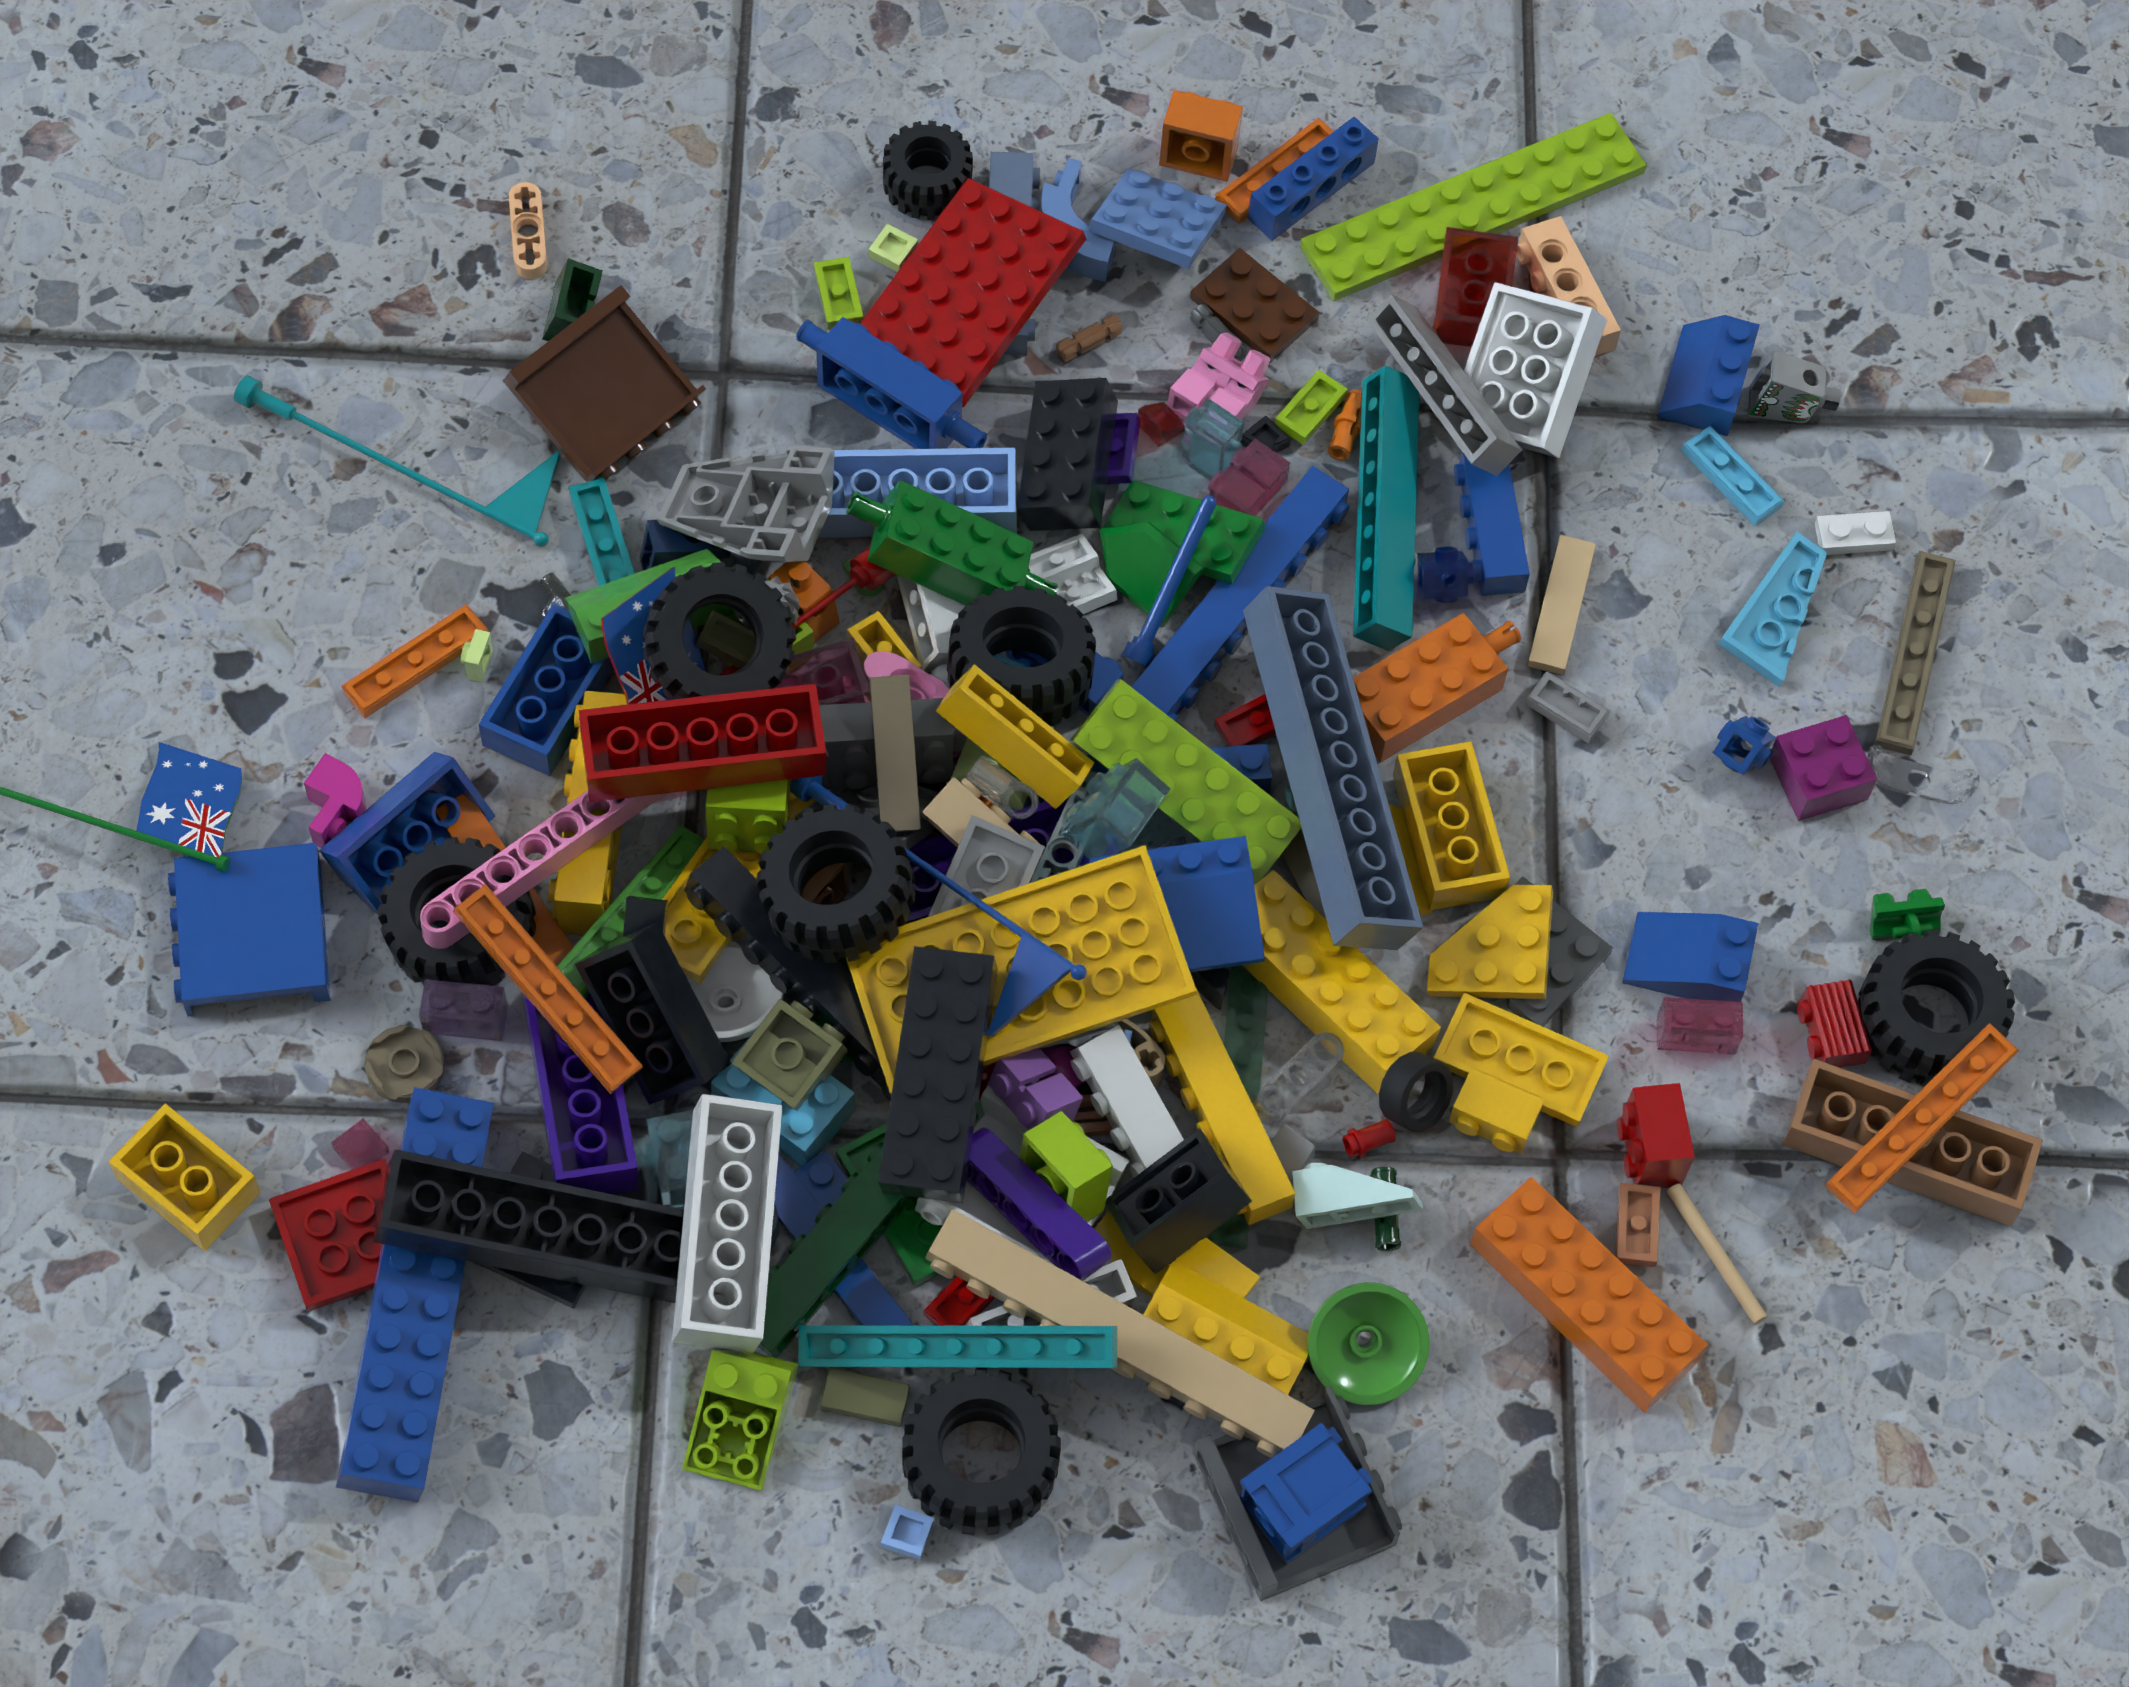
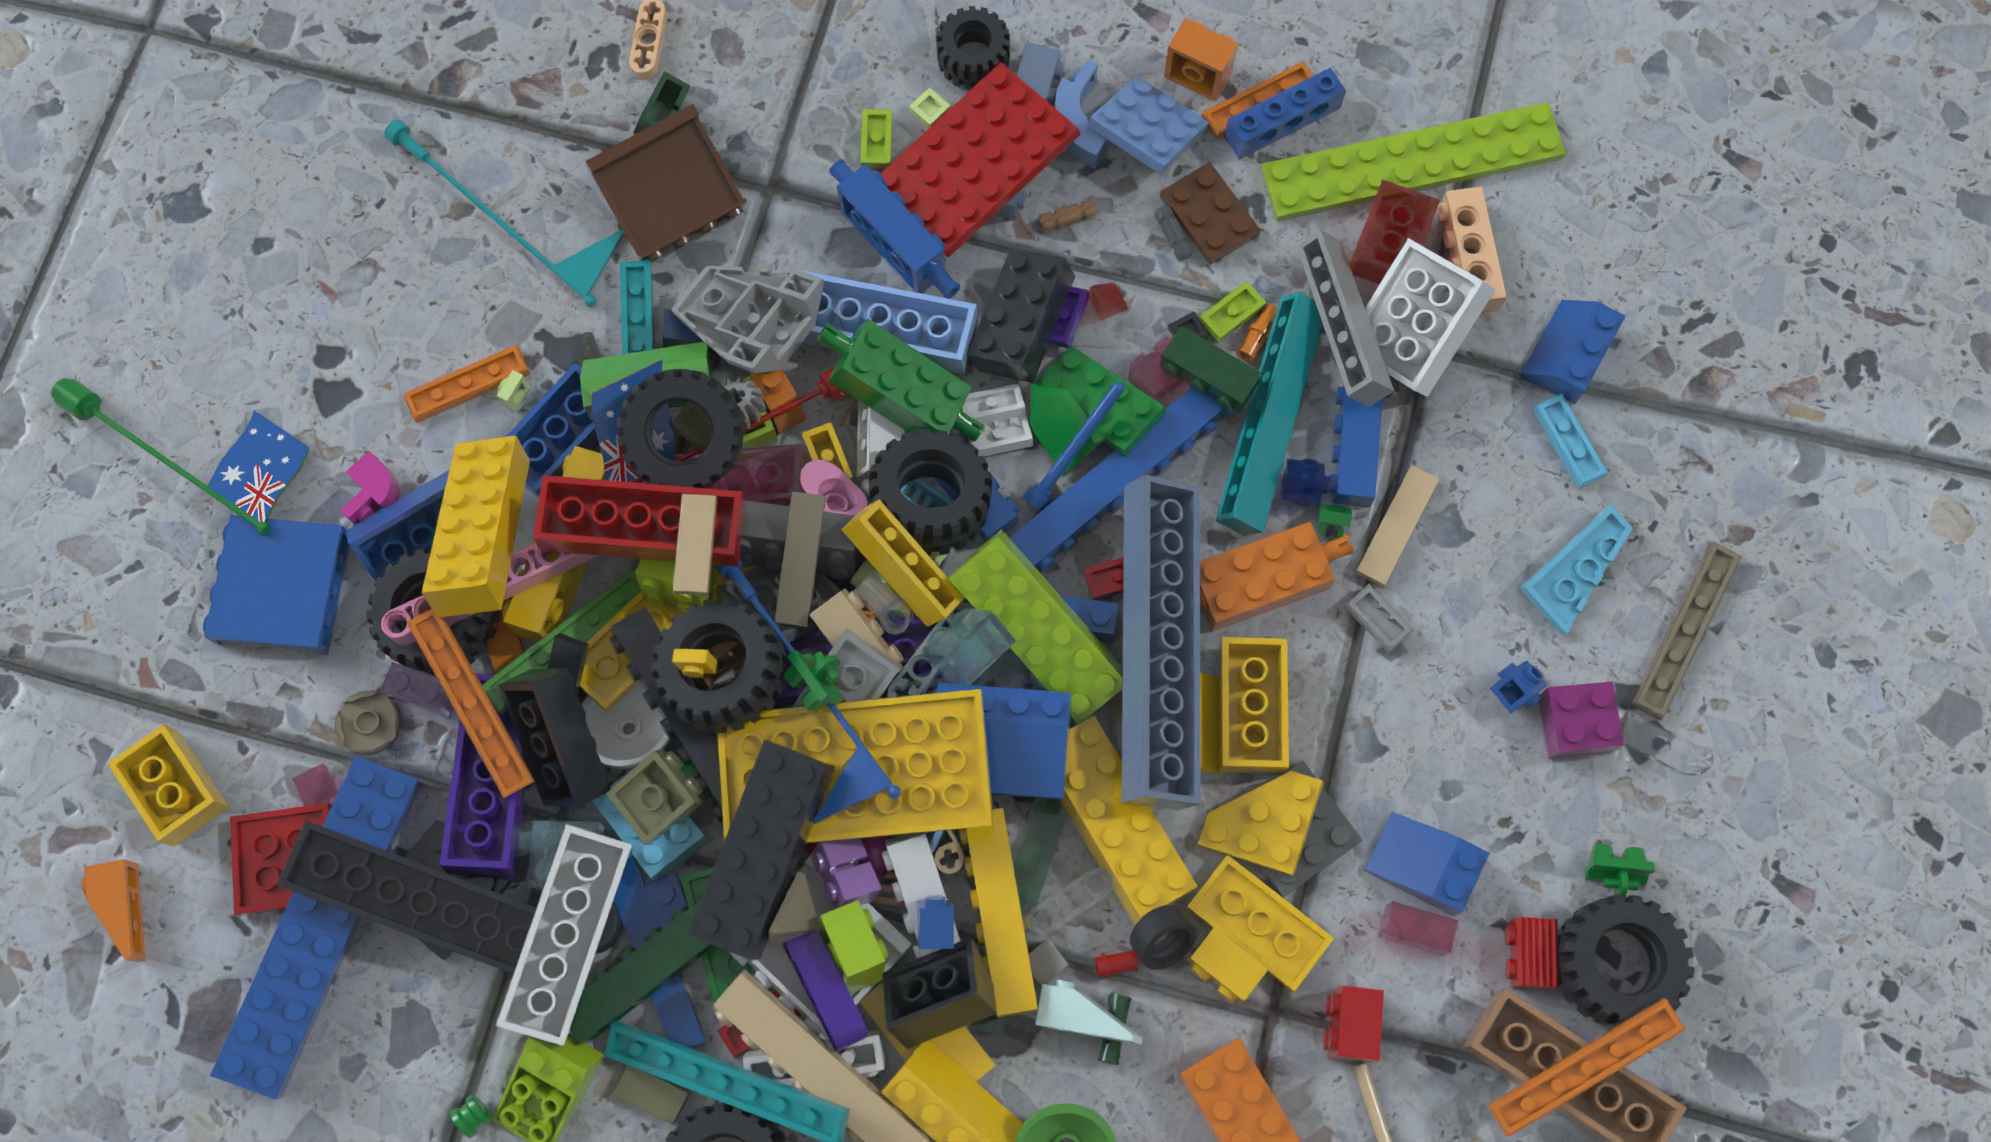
camera: 20 degrees right, 10 degrees up
(151, 1322) = (116, 900): none -> orange slope
(504, 791) = (476, 527): none -> yellow brick
(659, 1464) = (471, 1116): none -> green wheel
(780, 748) = (695, 544): none -> tan tile
(816, 871) = (694, 662): none -> yellow plate
(935, 868) = (819, 674): none -> green hips
(993, 1143) = (796, 913): none -> dark tan slope
(1155, 1120) = (935, 923): none -> blue brick
(1210, 438) = (1140, 325): clear light blue piece -> none
(1222, 379) = (1162, 280): bright pink hips -> none
(1305, 469) = (1209, 370): none -> dark green brick
(1486, 607) = (1335, 516): none -> green tile
(1638, 1224) = (1320, 1093): nougat plate -> none
(1790, 390) = (1638, 377): light grey torso -> none
(1855, 533) = (1662, 513): white plate -> none

